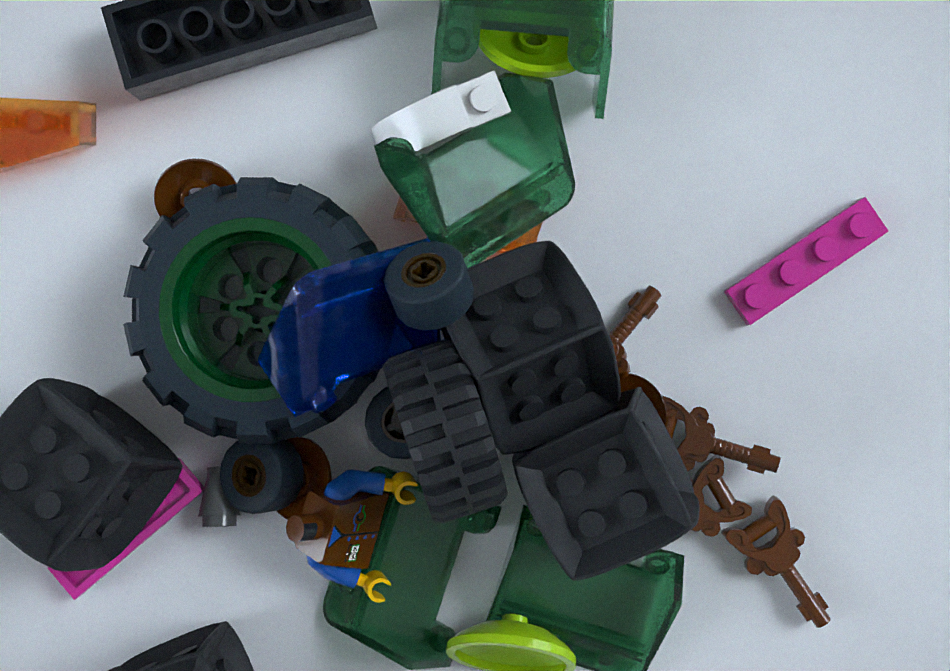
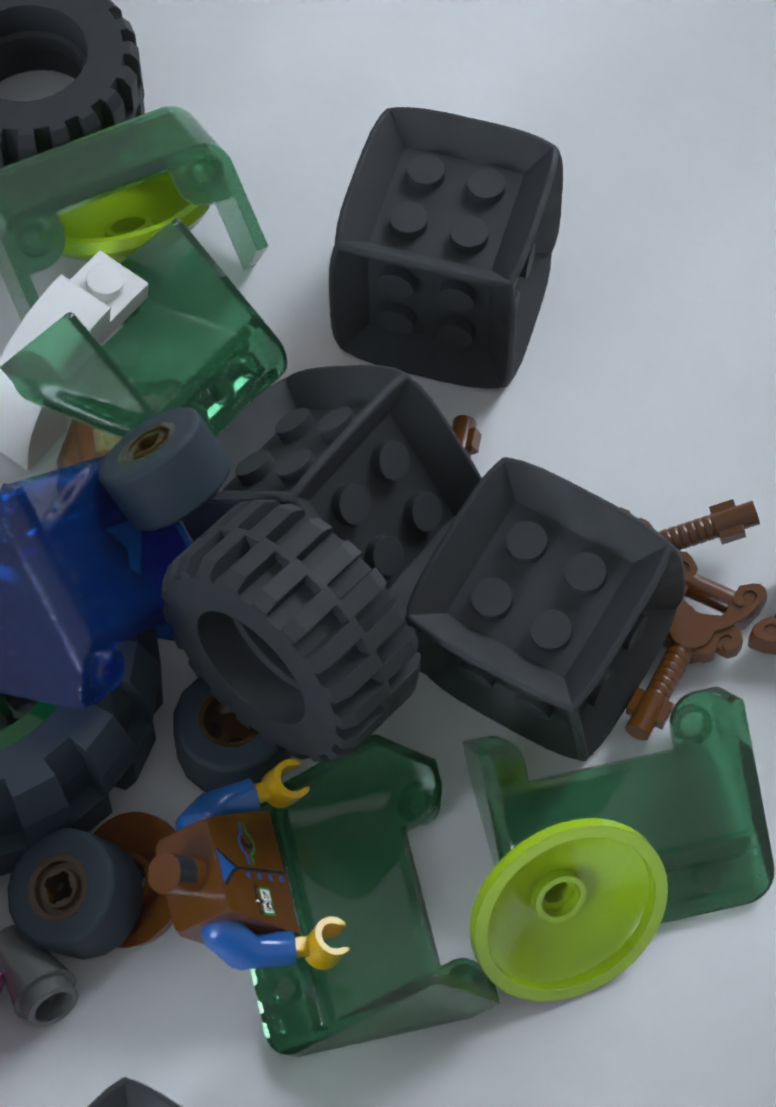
camera: 30 degrees left, 30 degrees down
(714, 186) = (445, 246): none -> black piece
(806, 261) = (626, 299): dark pink plate -> none

